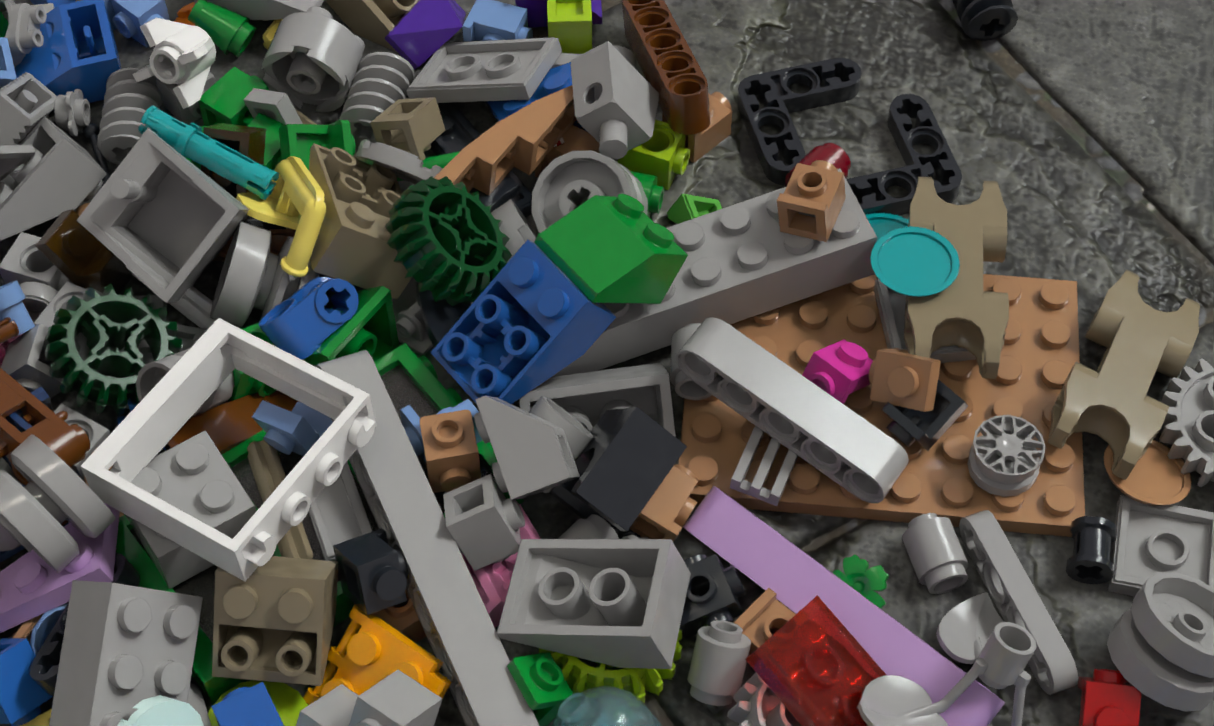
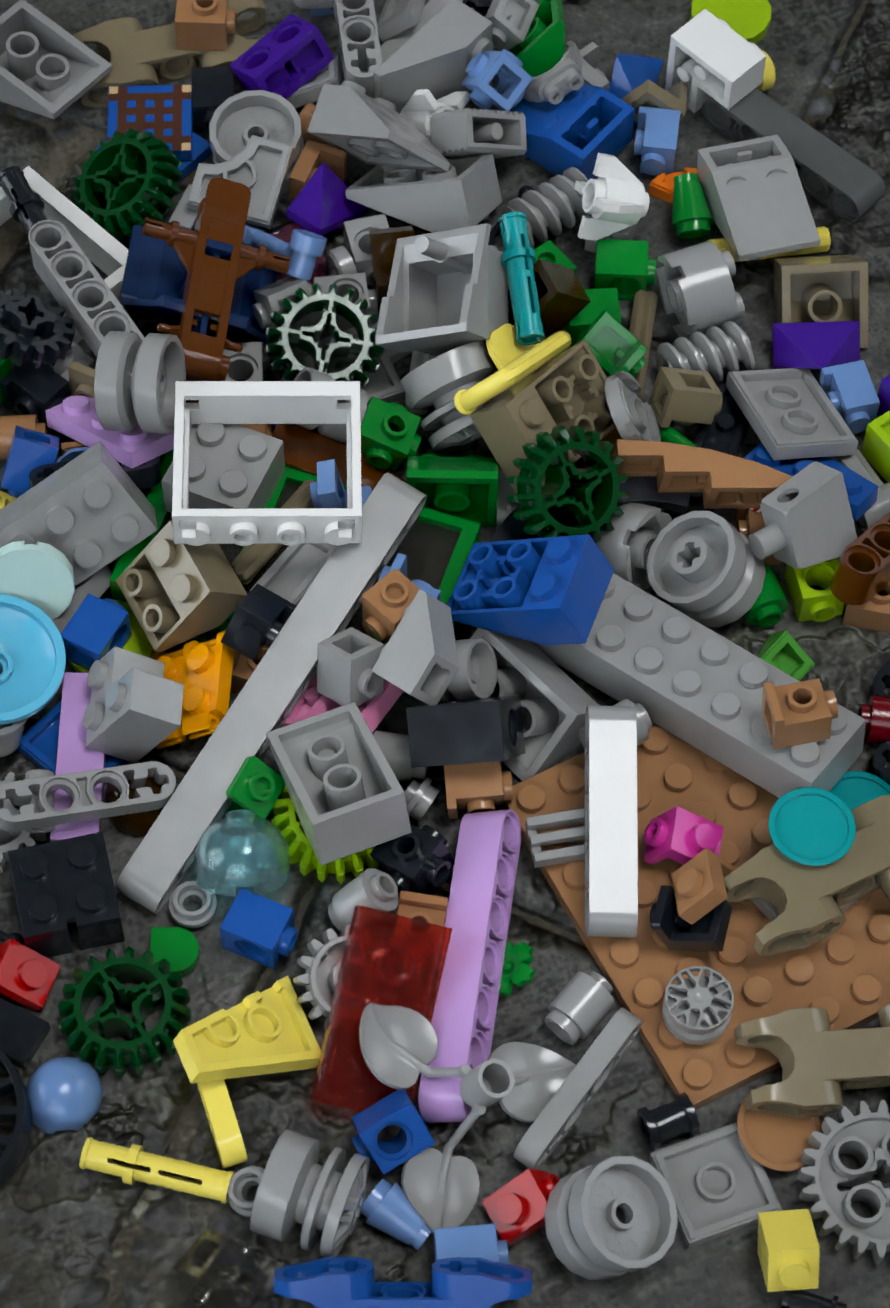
camera: 55 degrees right, 5 degrees up
(72, 112) = (525, 168): light grey plate -> none
(273, 105) = (627, 296): light grey tile -> none
(303, 321) = (428, 441): blue piece -> none
(614, 251) = (630, 600): green slope -> none

